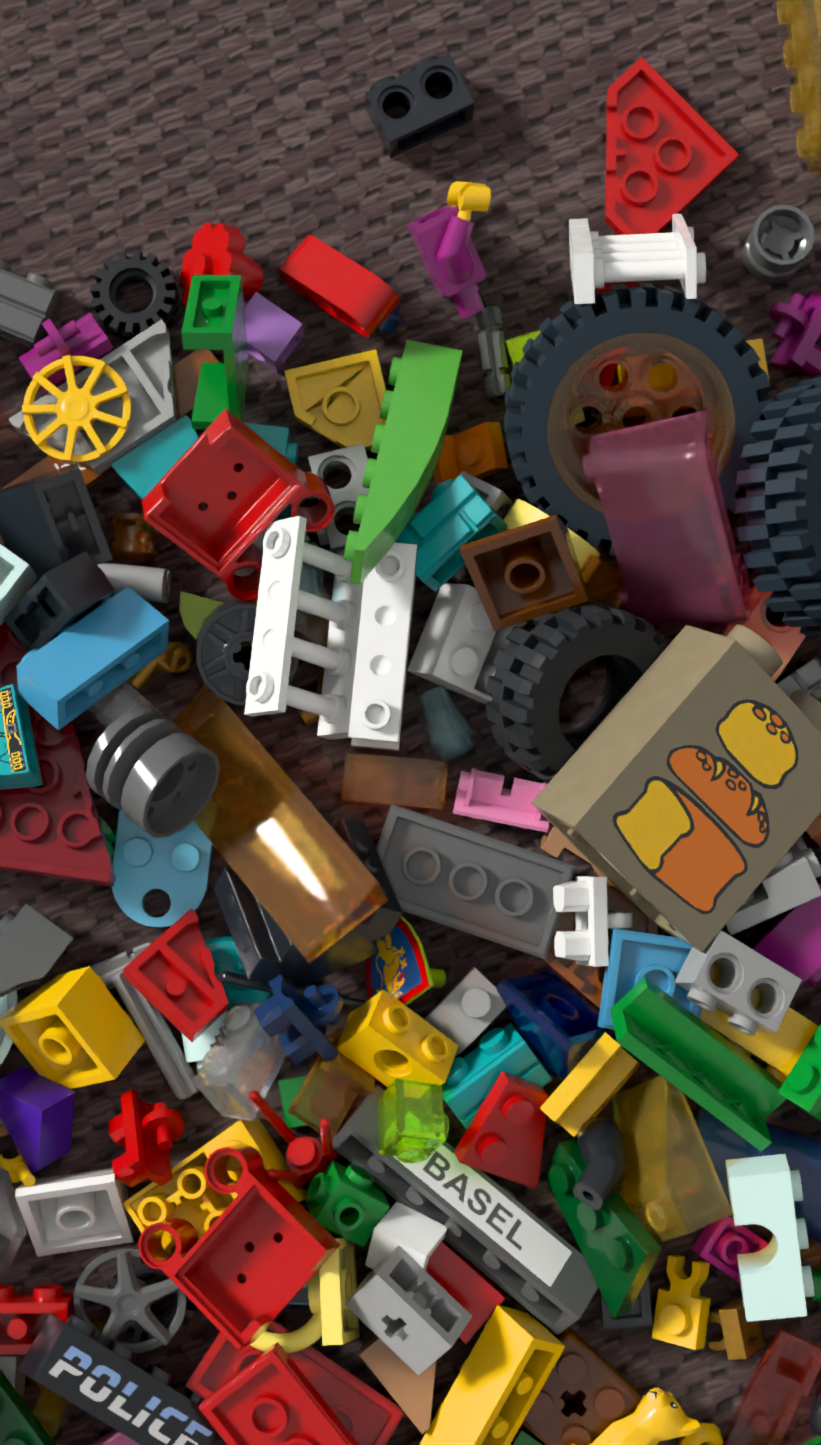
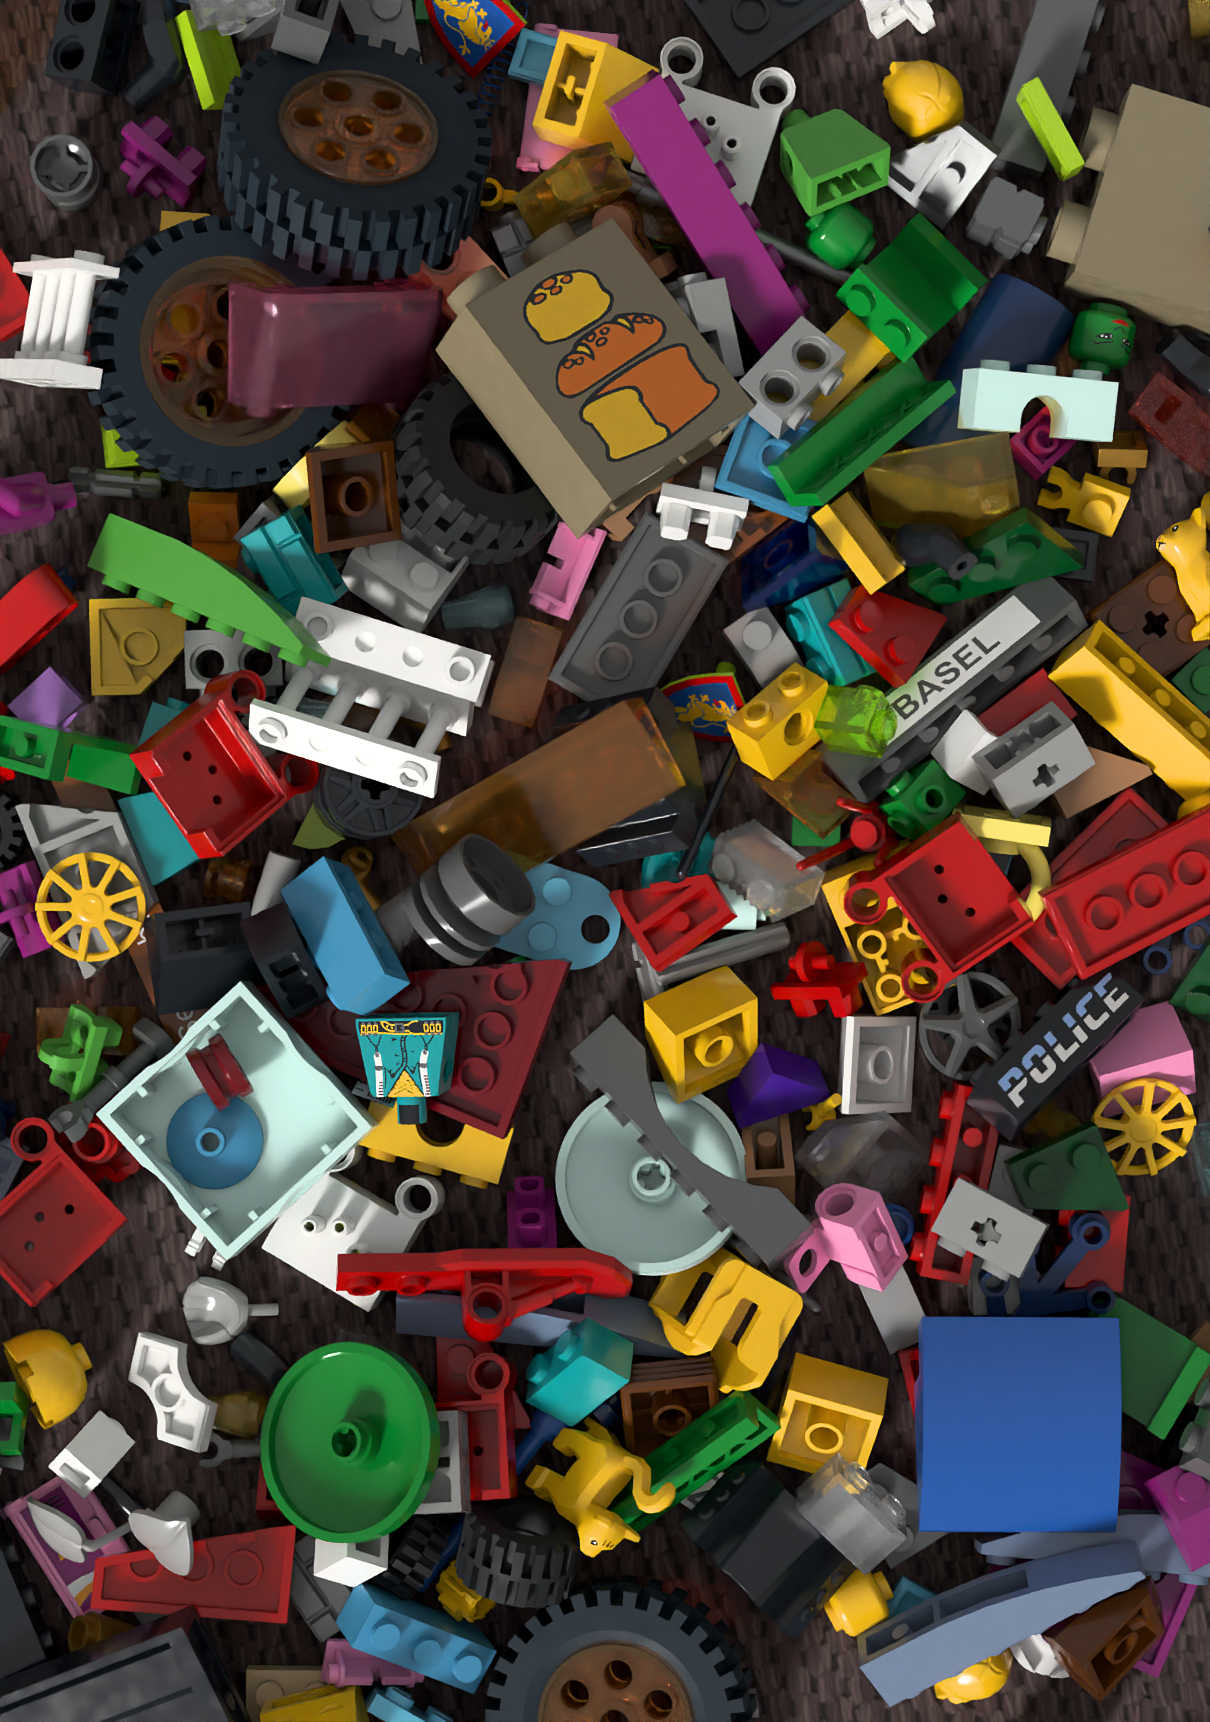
camera: 80 degrees left, 5 degrees up
(307, 1015) = (731, 788): dark blue hips -> none

